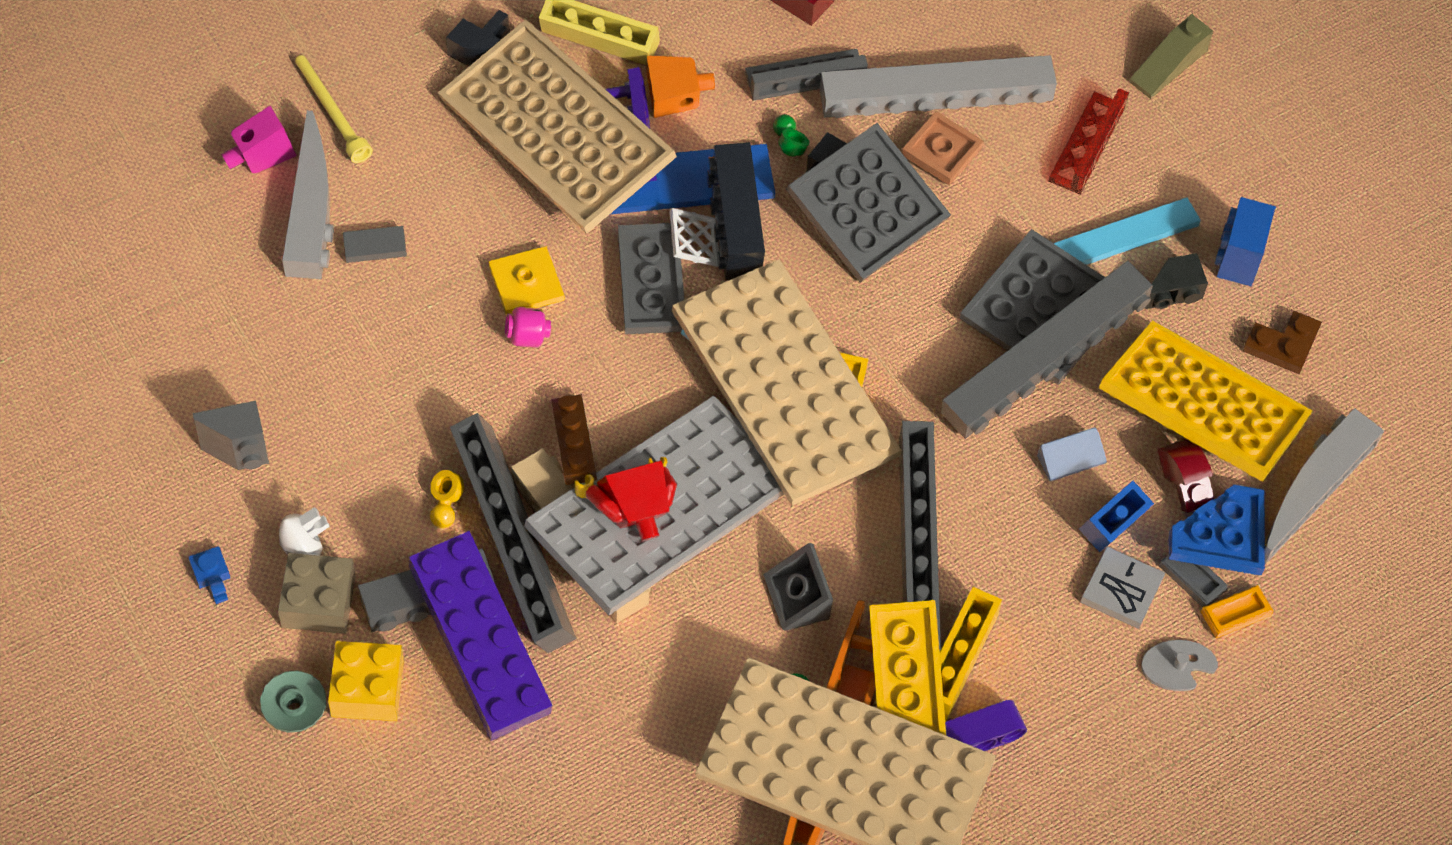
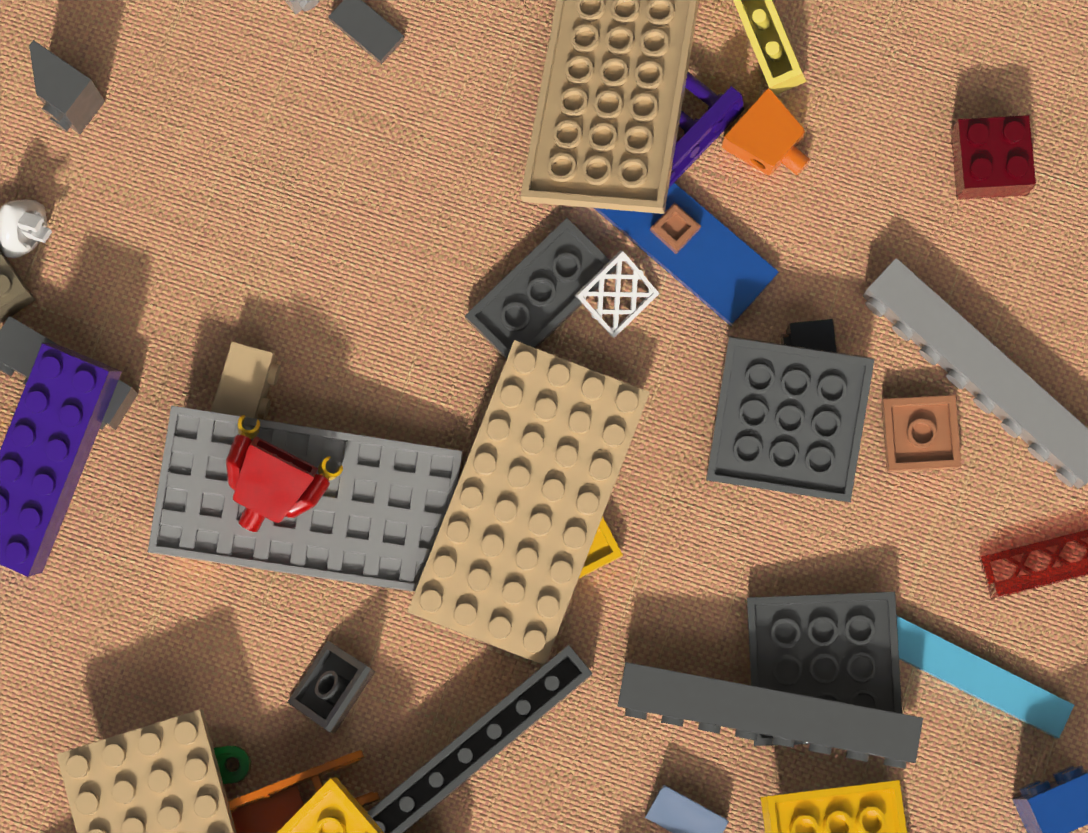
camera: 55 degrees right, 20 degrees up
(442, 514) = (173, 303): yellow plate -> none
(515, 544) = (178, 381): dark grey brick -> none
(526, 280) = (444, 187): yellow plate -> none
(527, 327) = (392, 231): dark pink head -> none
(573, 438) = (304, 371): reddish brown plate -> none
(684, 174) = (675, 228): none -> nougat tile
(735, 209) = (666, 311): black brick -> none
(791, 141) = (803, 292): green plate -> none
(799, 74) = (888, 247): dark grey fence -> none
(1178, 282) = (966, 770): pearl dark grey slope -> none

